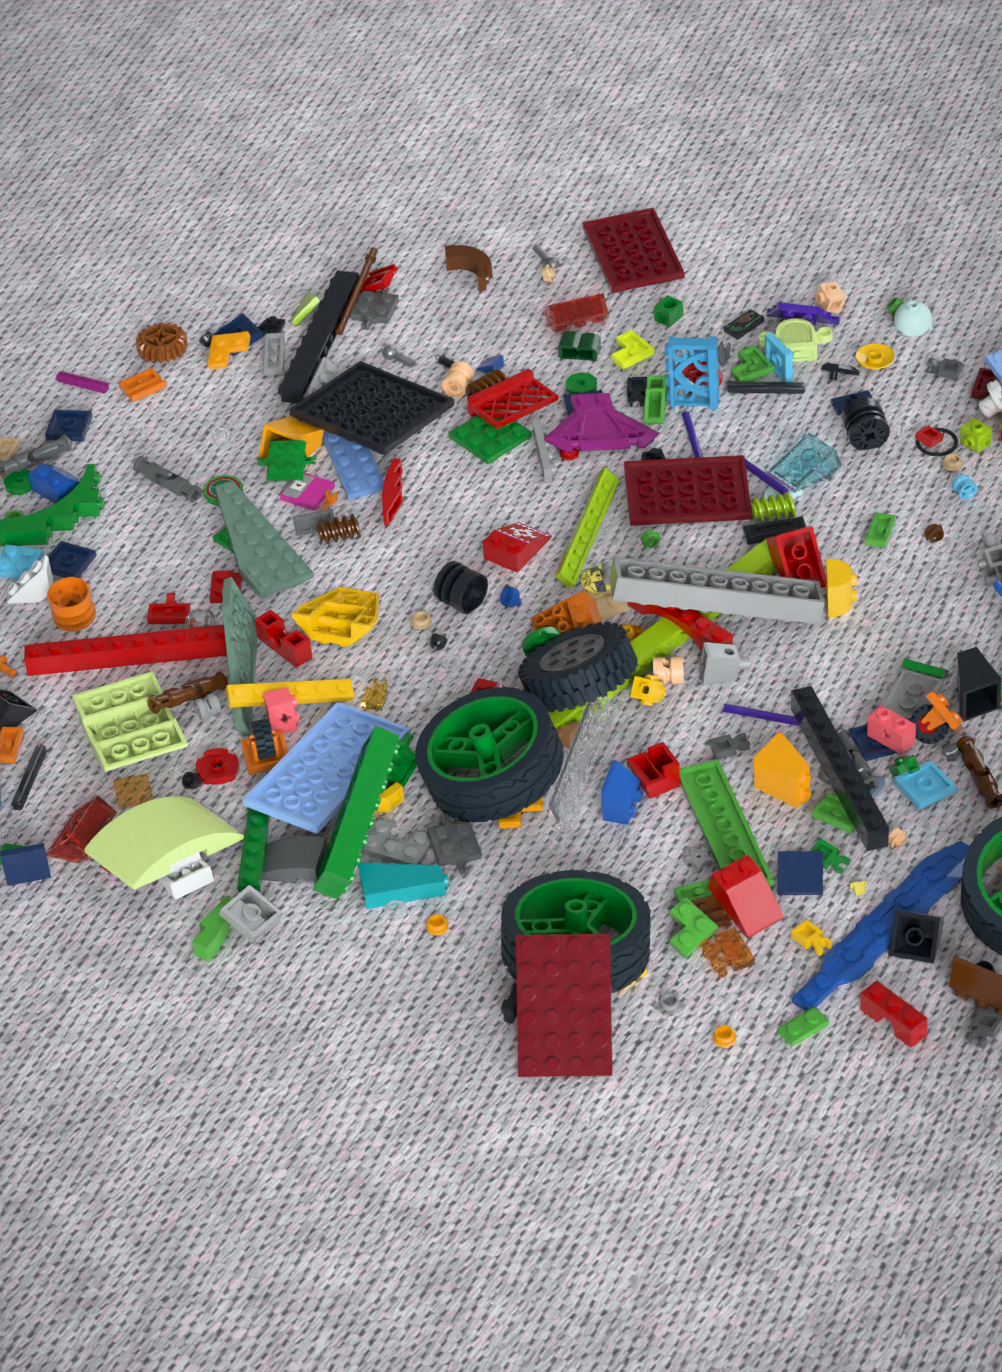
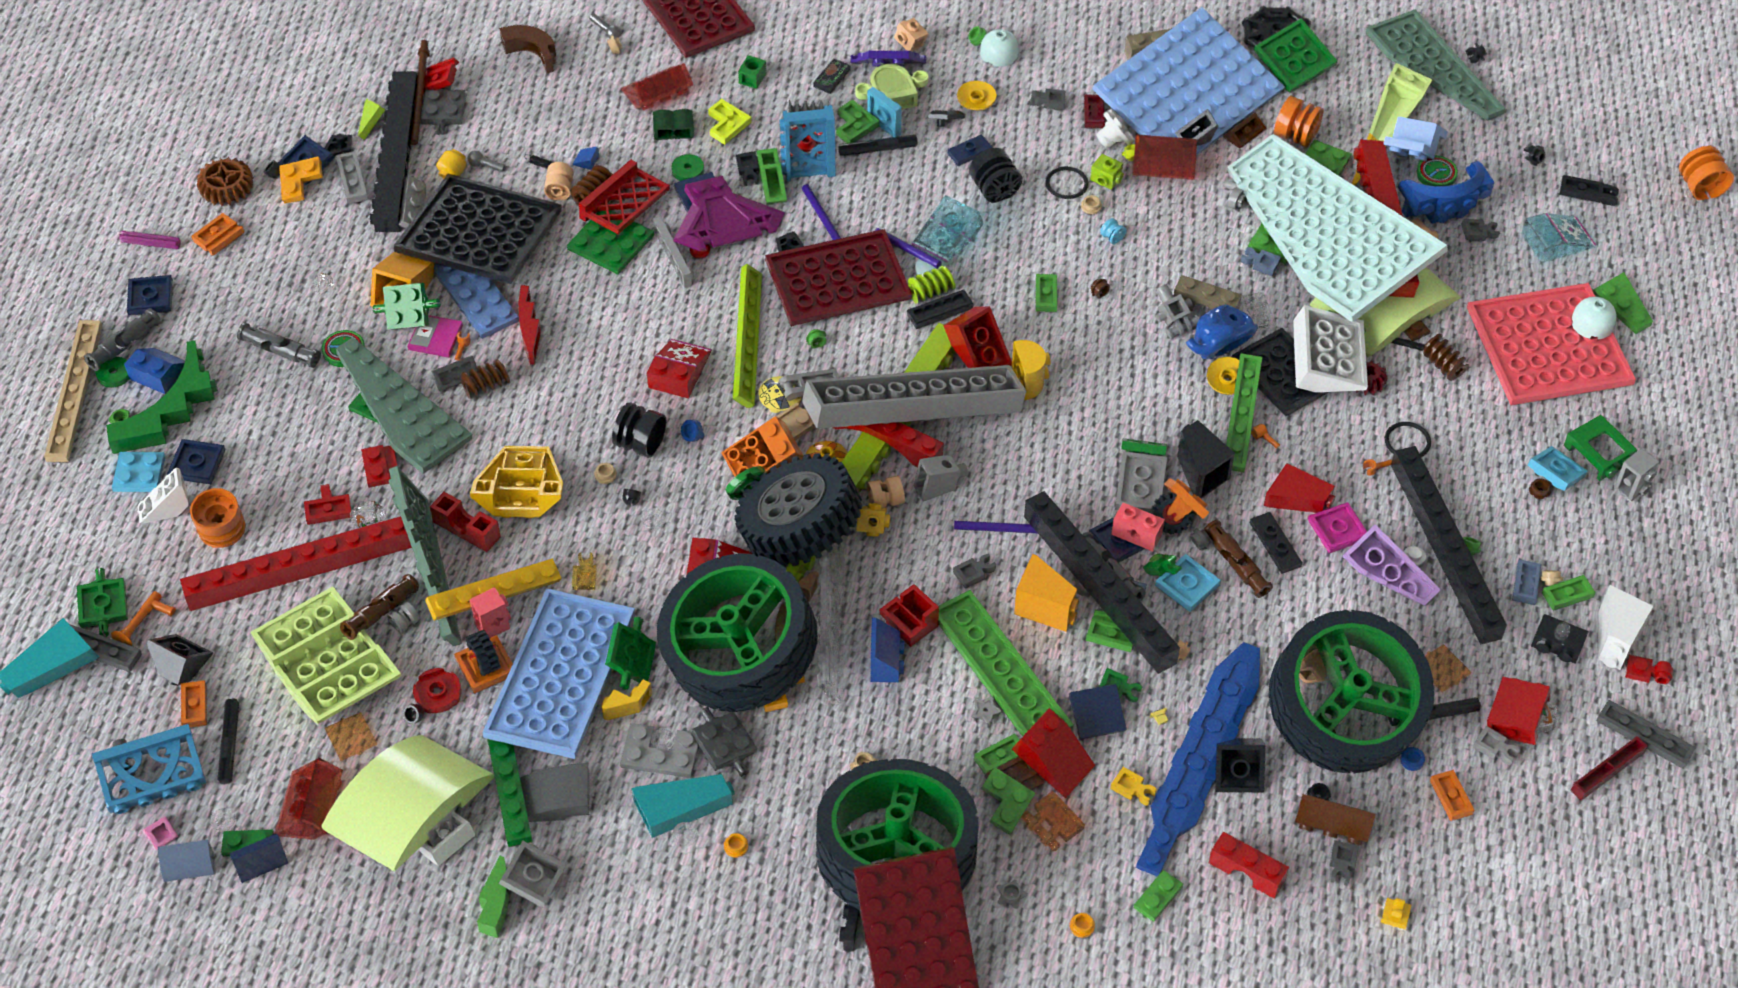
camera: 20 degrees left, 10 degrees up
(357, 813) = (616, 731): green brick -> none
(366, 352) = (451, 163): none -> yellow head
(929, 436) = (1061, 179): red plate -> none

